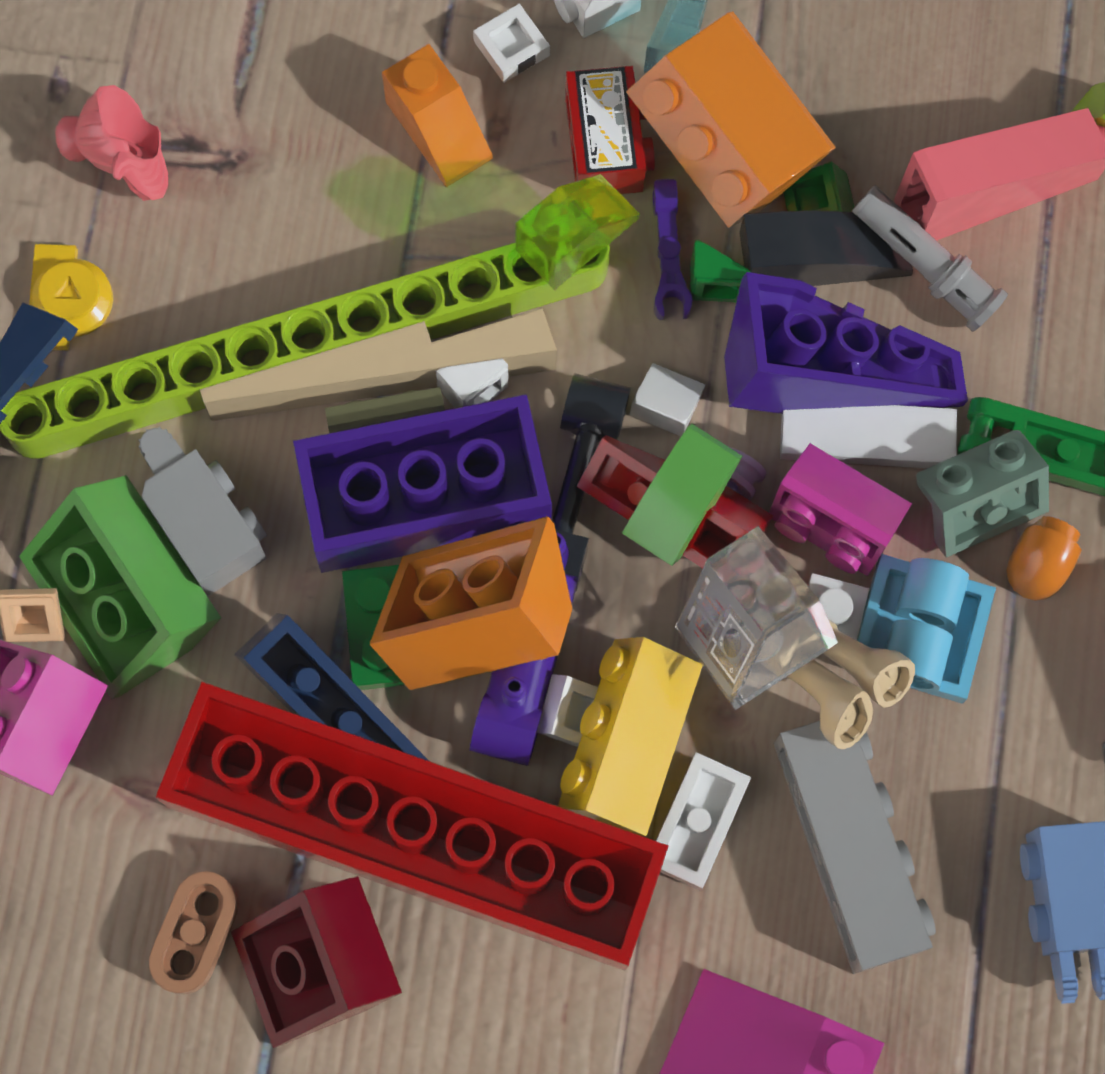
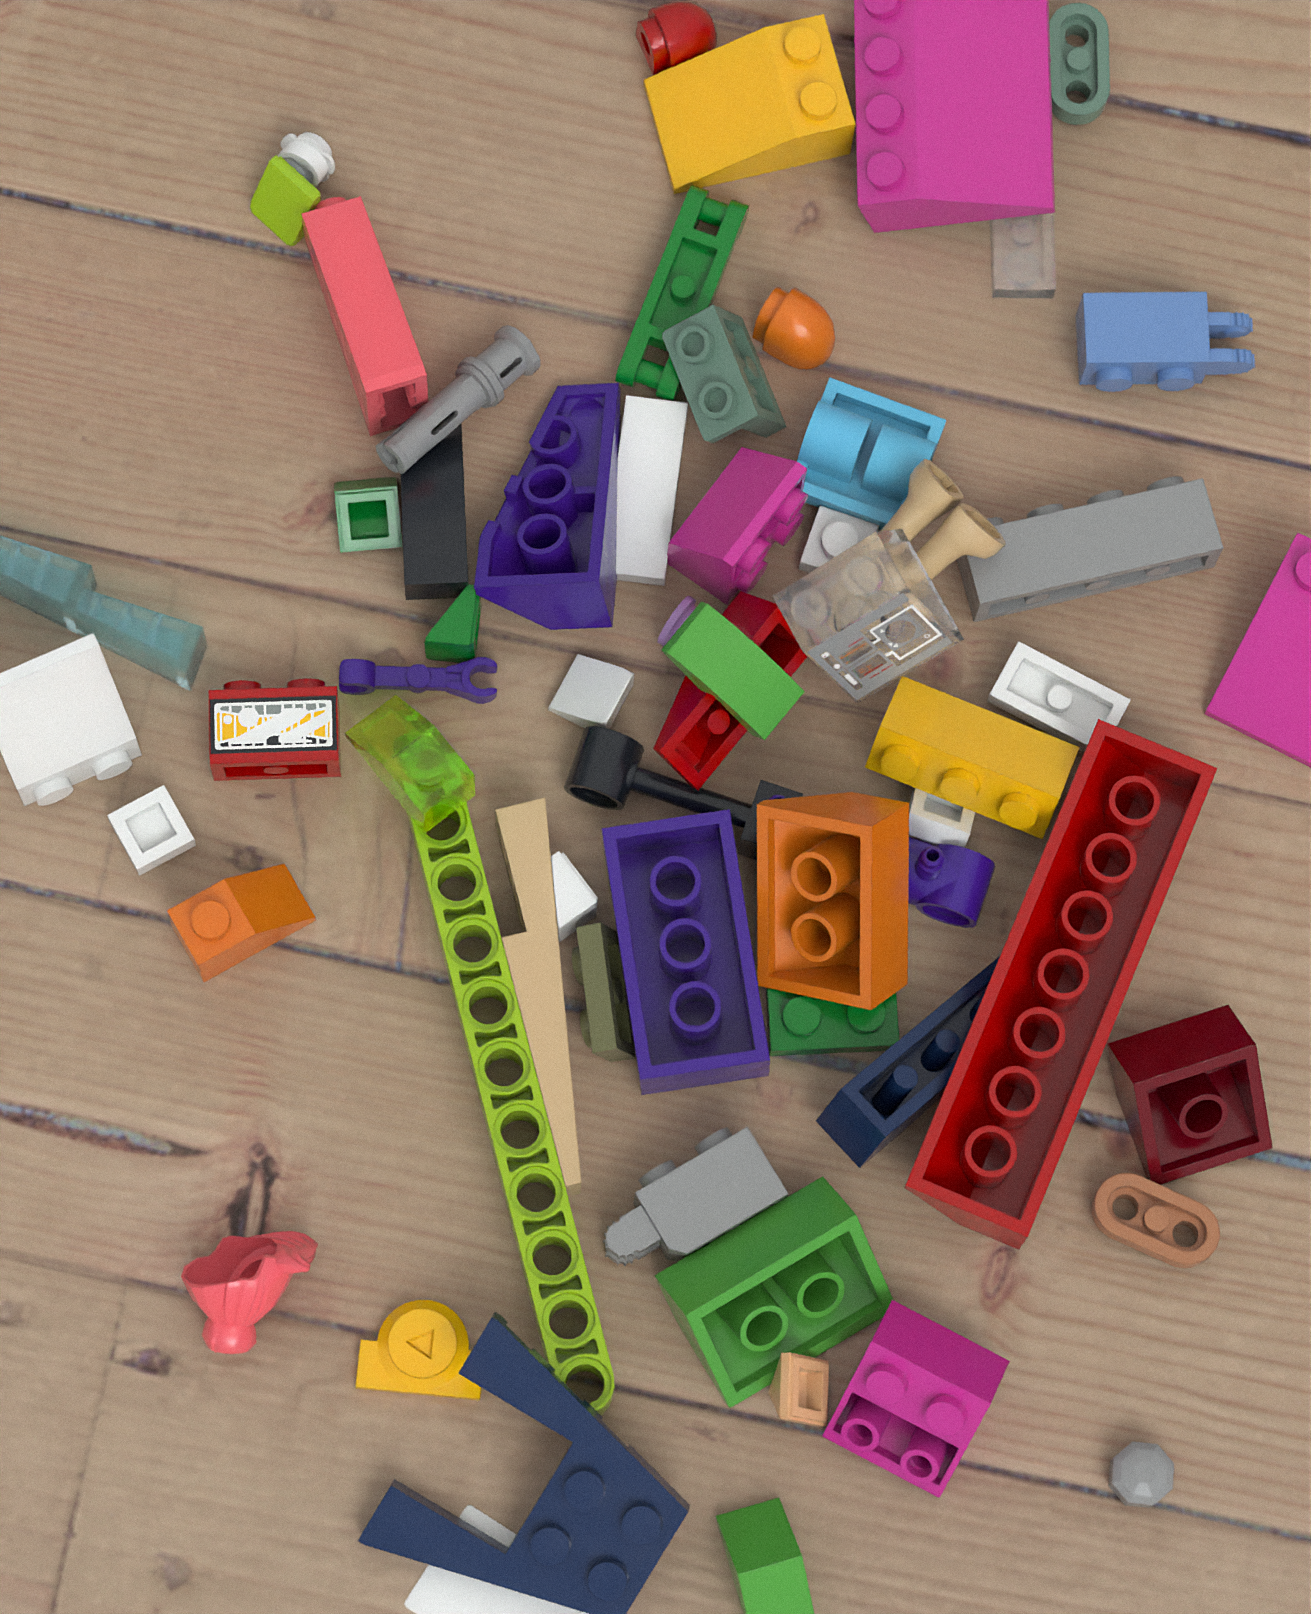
camera: 90 degrees left, 0 degrees up
(730, 119) = (291, 587): orange slope -> none

